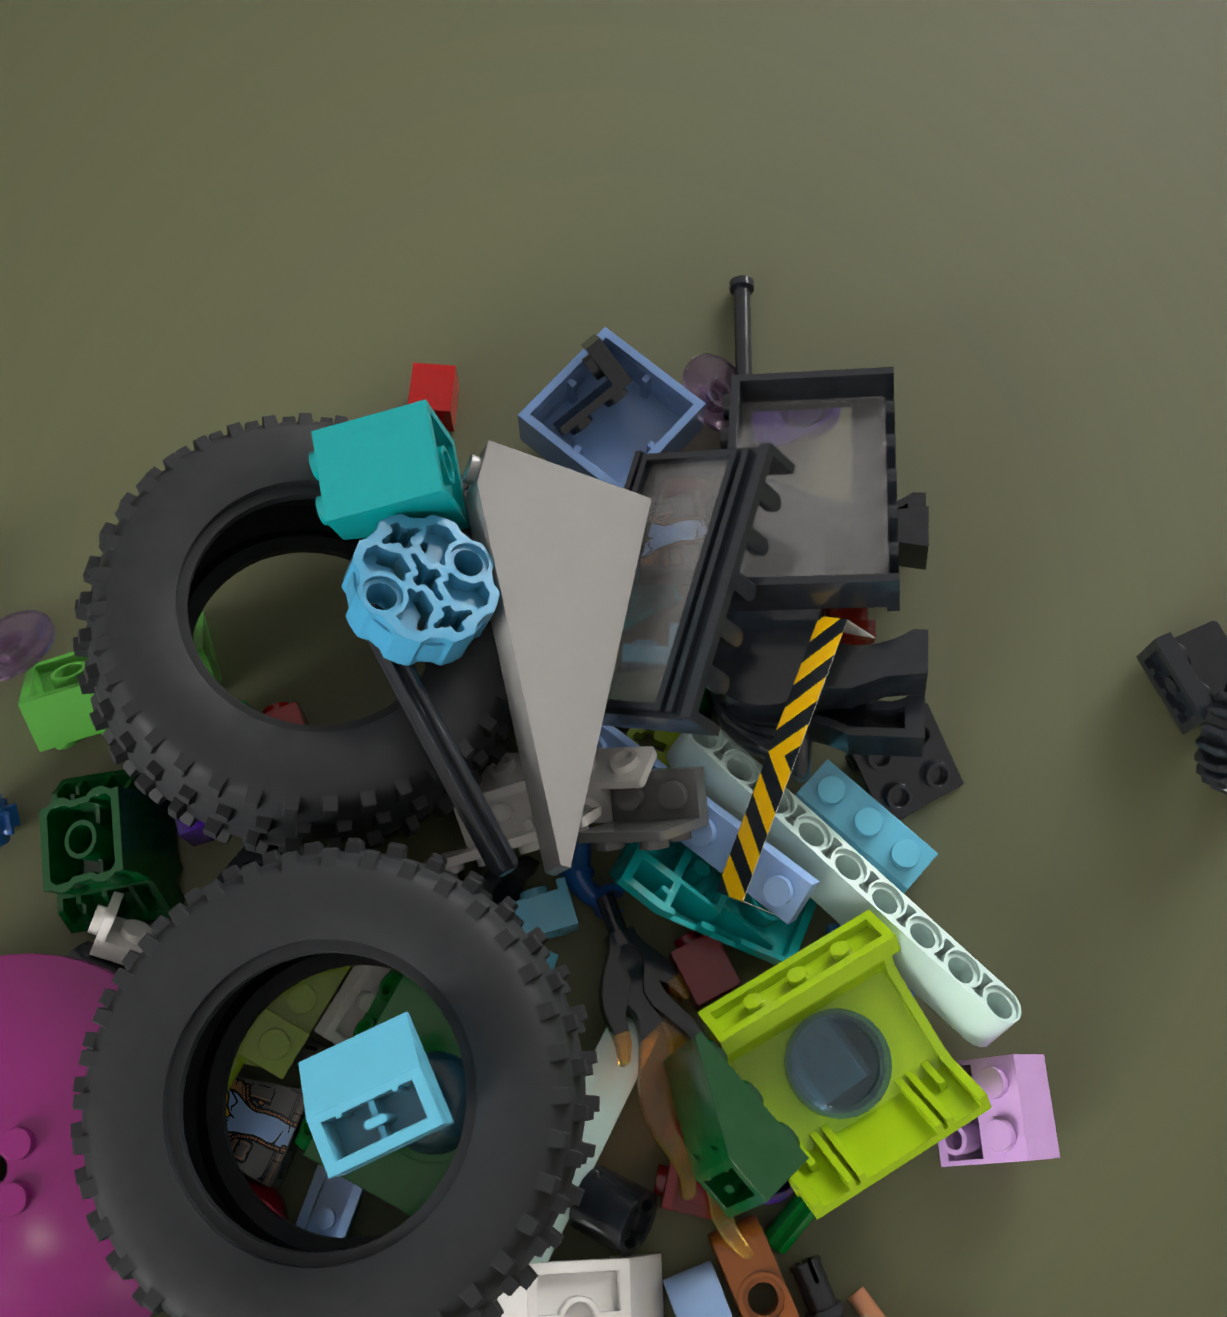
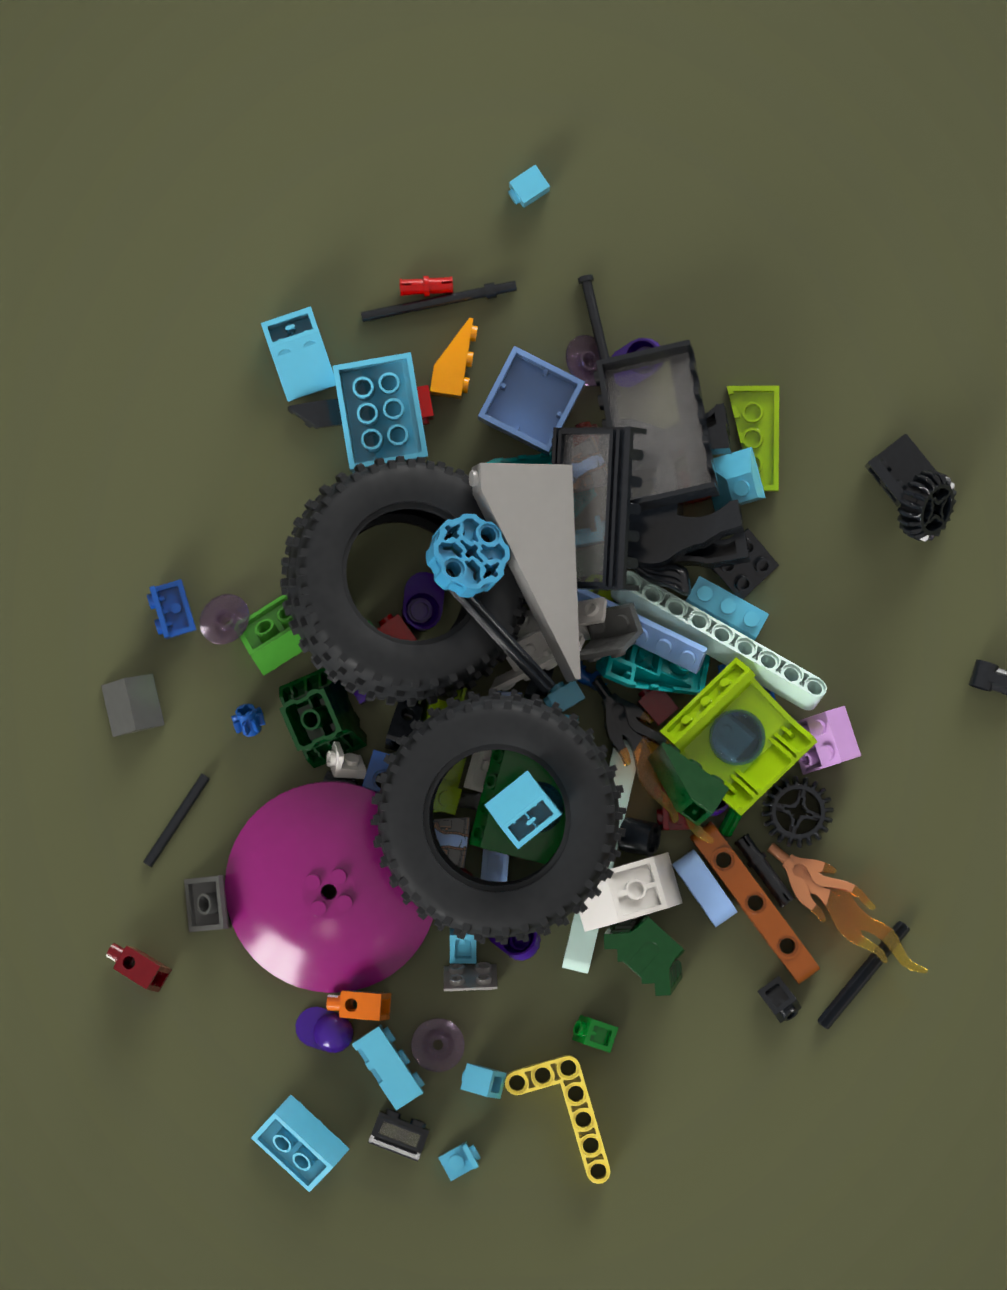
camera: 15 degrees left, 15 degrees up
(272, 281) = (299, 354): none -> medium azure slope
(276, 377) = (318, 413): none -> black slope
(345, 687) = (422, 602): none -> dark purple cap
(366, 357) = (380, 410): none -> medium azure slope
(386, 468) = (432, 495): teal slope -> none
(496, 241) = (426, 286): none -> red pin
(500, 355) = (450, 368): none -> light orange slope
(590, 269) = (489, 291): none -> black bar
(600, 364) = (526, 386): black bracket -> none
(687, 144) = (528, 187): none -> medium azure brick
(783, 755) = (674, 588): sticker -> none
(910, 1259) = (791, 833): none -> black gear
(926, 606) = (737, 478): none -> medium azure slope
(969, 560) = (758, 427): none -> lime wing

